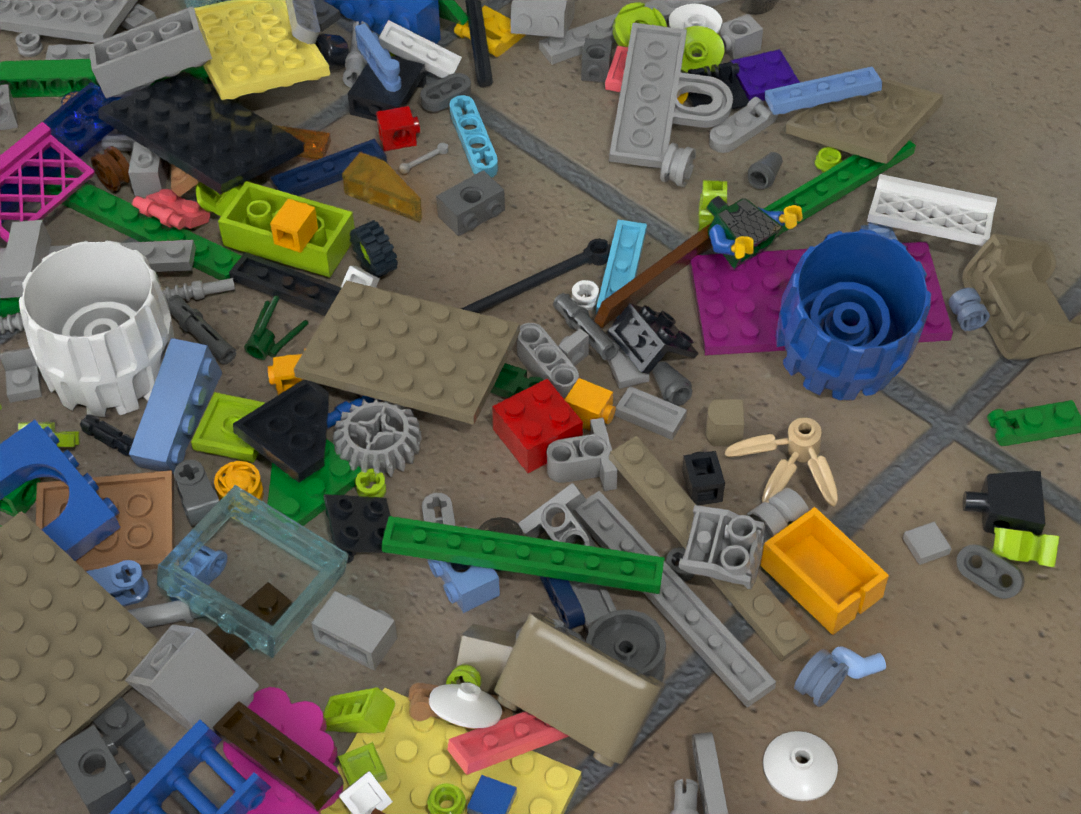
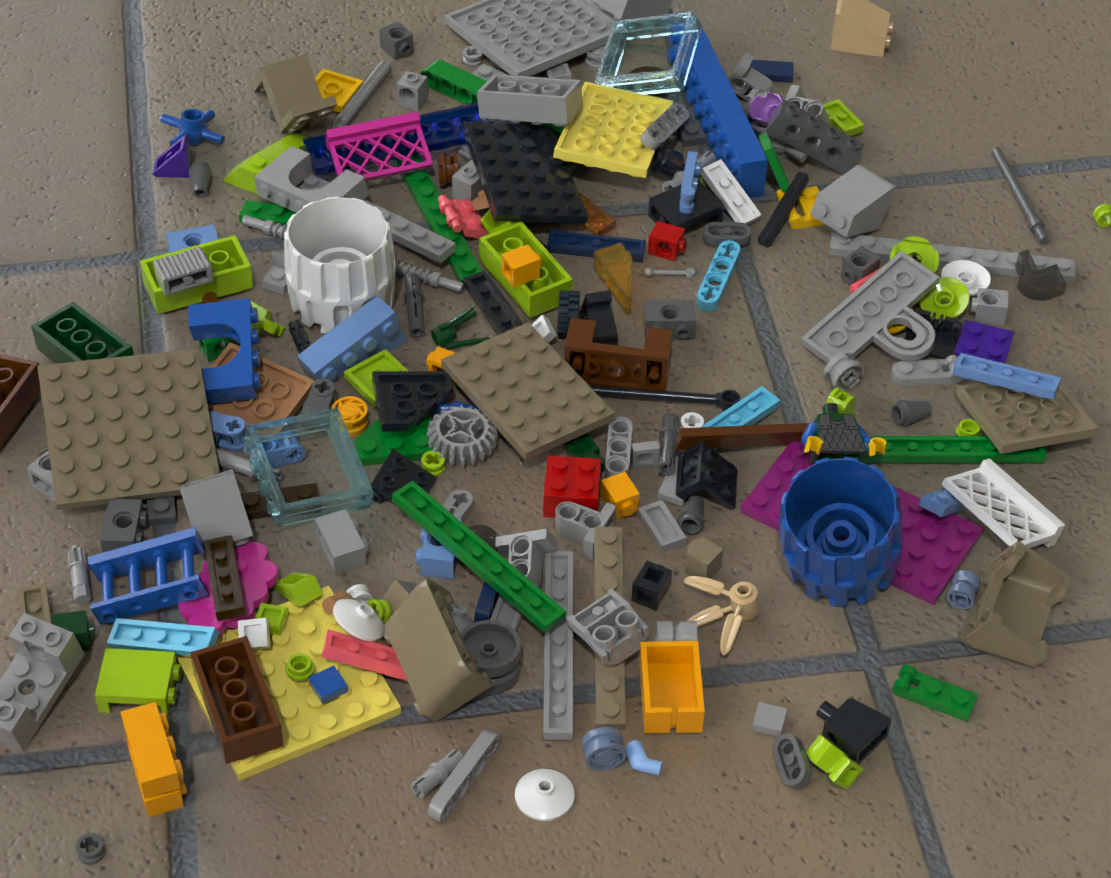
camera: 35 degrees right, 5 degrees down
(410, 241) = (598, 308): none -> black tile
(429, 675) = (360, 593): none -> white bush
(493, 267) = (640, 367): none -> reddish brown plate

